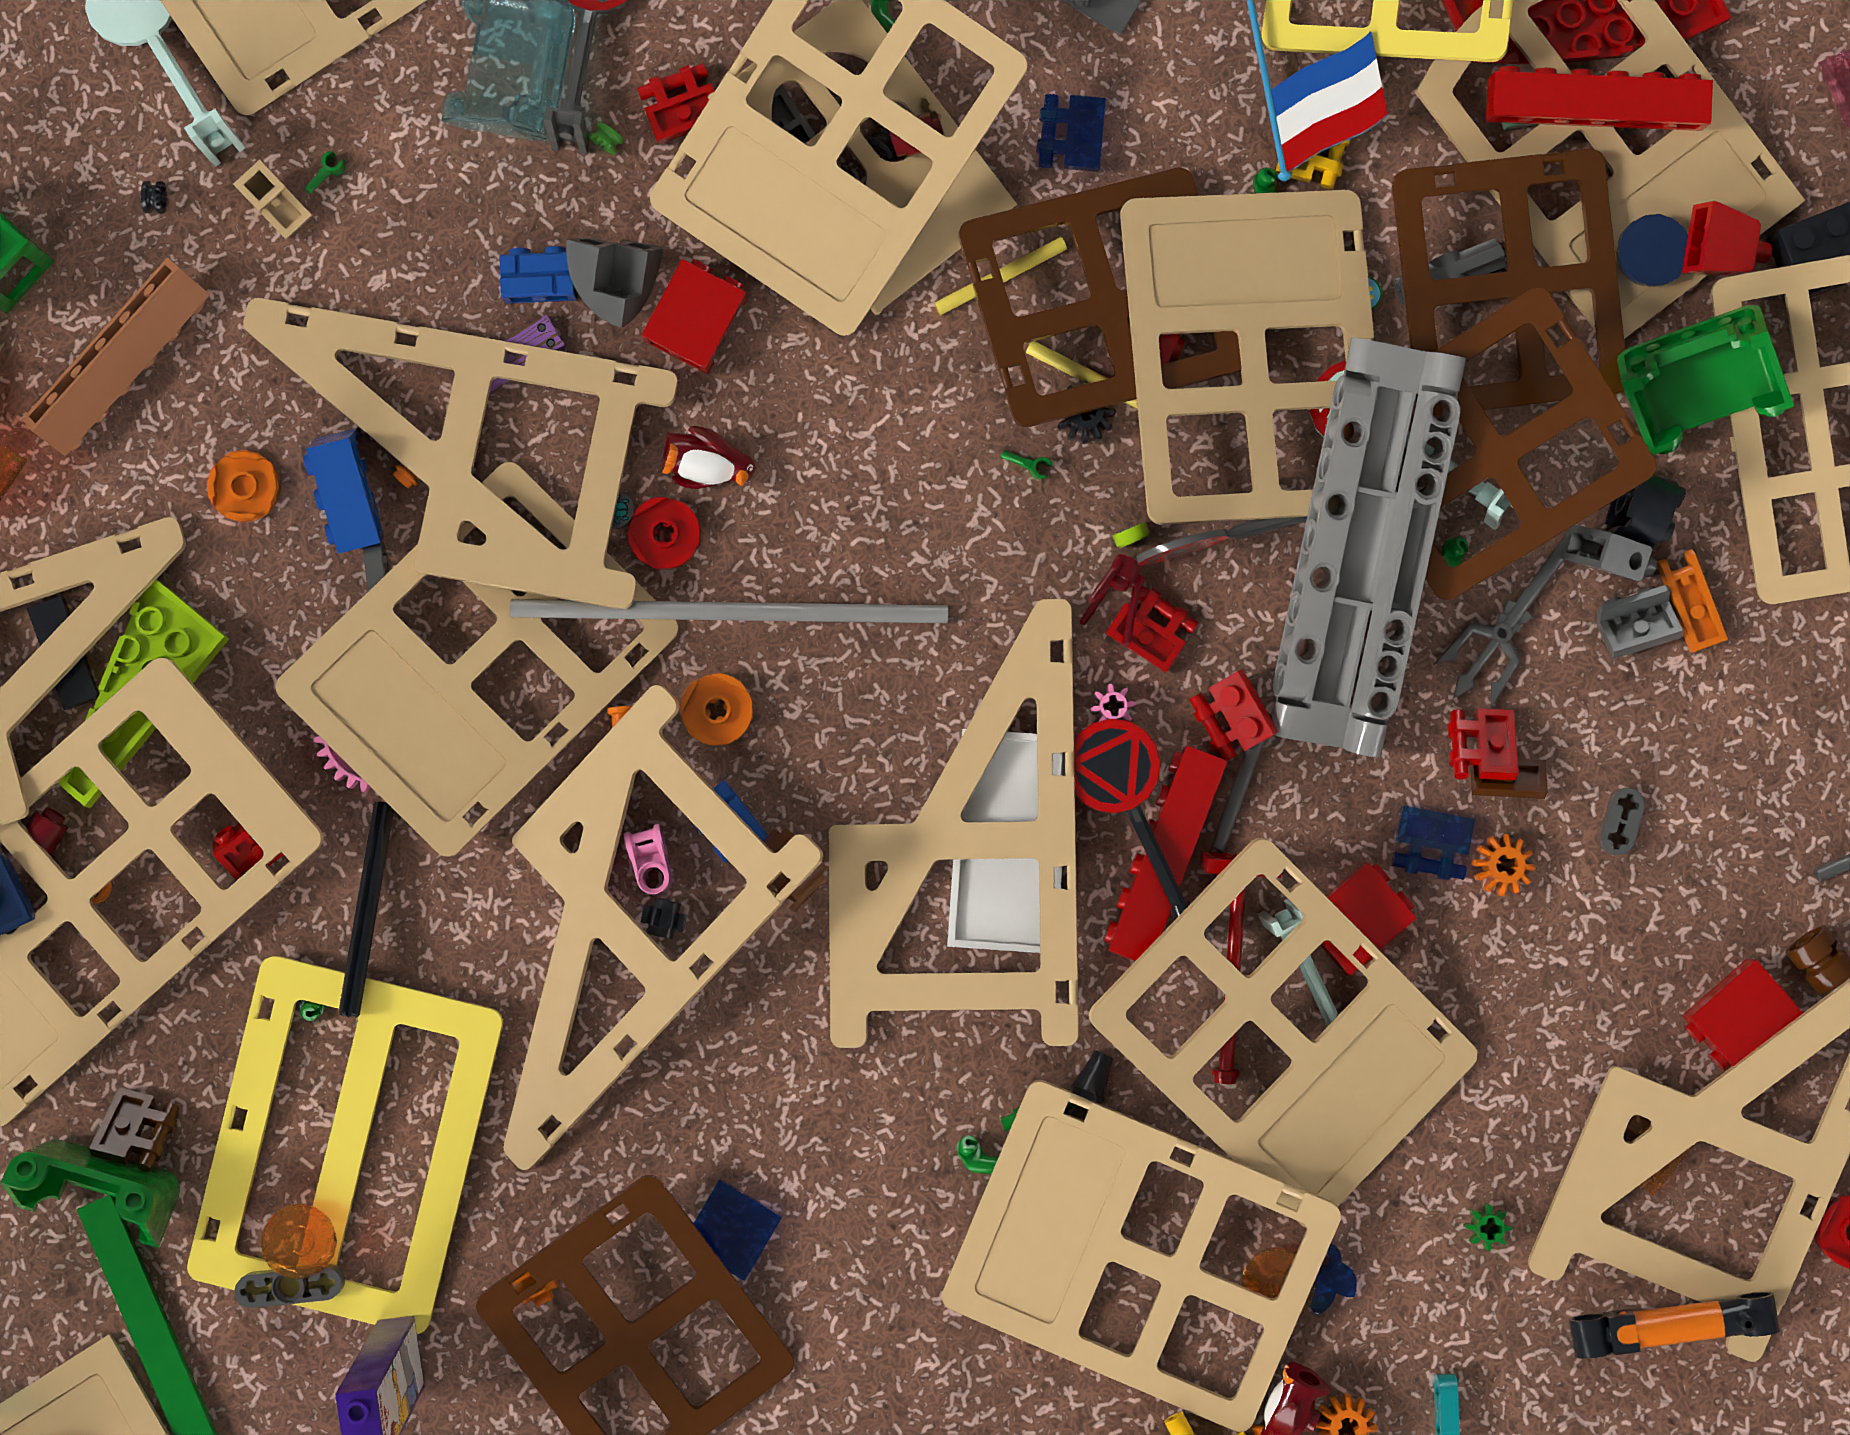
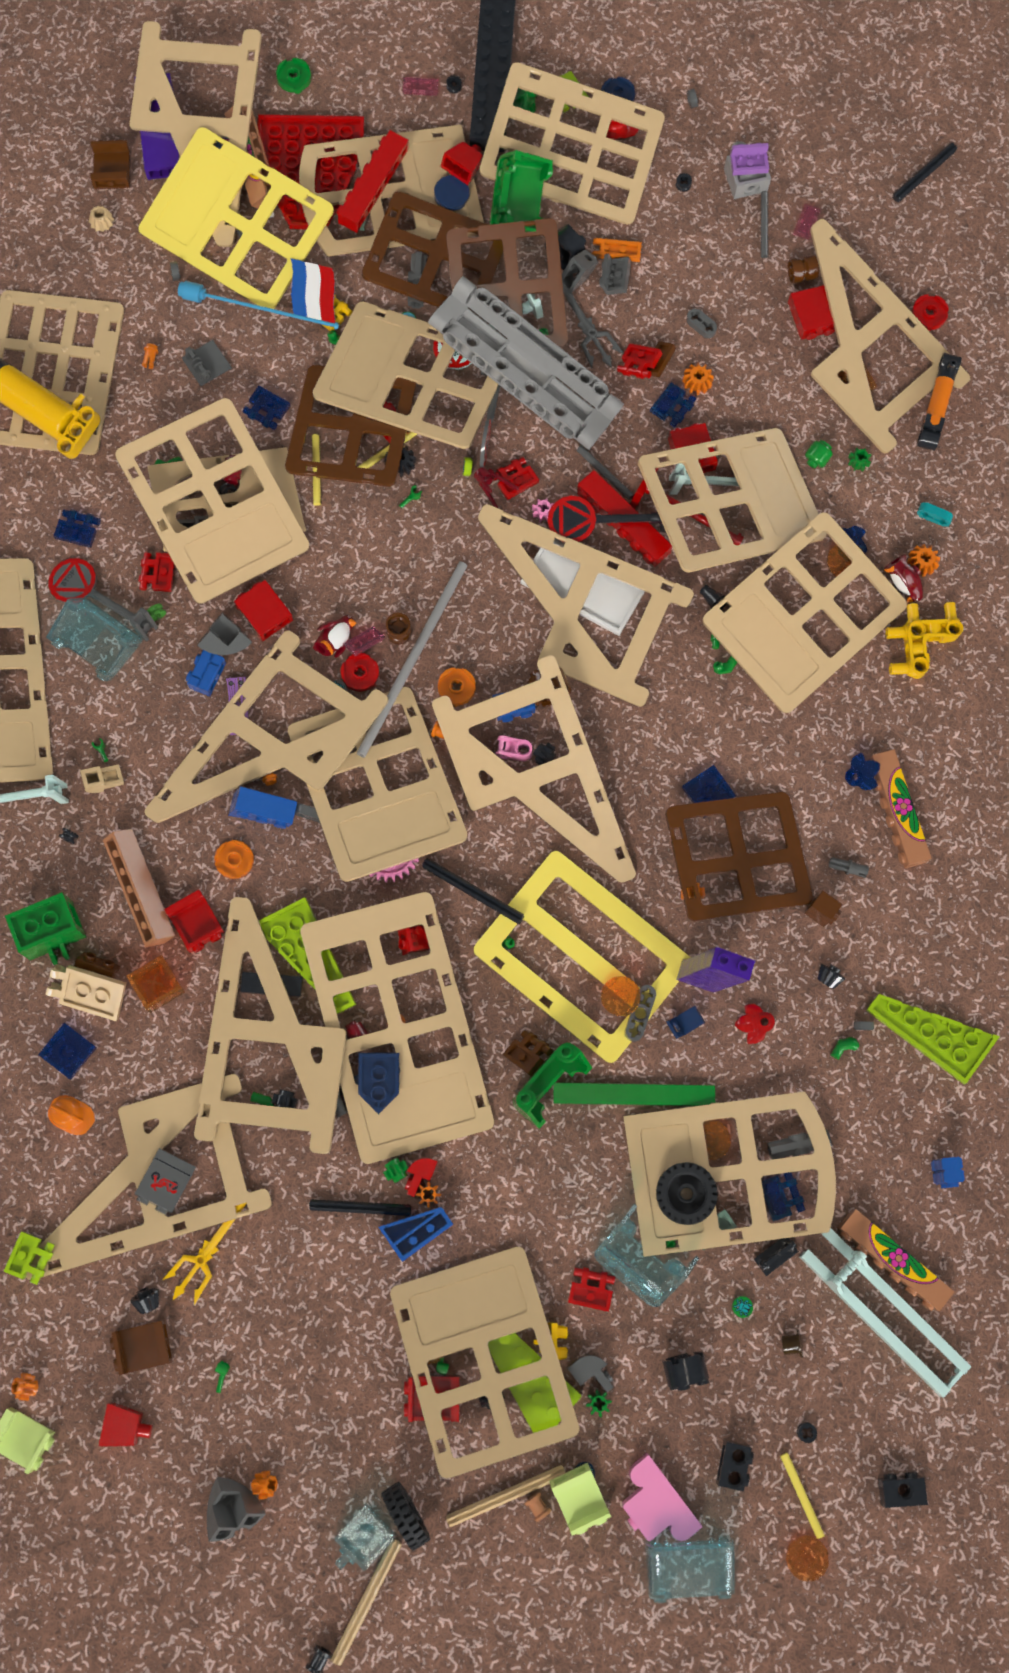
camera: 70 degrees left, 10 degrees down
(107, 478) = (195, 921): none -> red panel
(308, 1367) = (686, 1022): none -> dark blue bracket
(721, 513) = (364, 641): none -> clear pink tile
(769, 561) = (398, 628): none -> reddish brown wheel
(1242, 710) = (573, 454): red plate -> none
(1461, 1148) = (818, 454): none -> green head

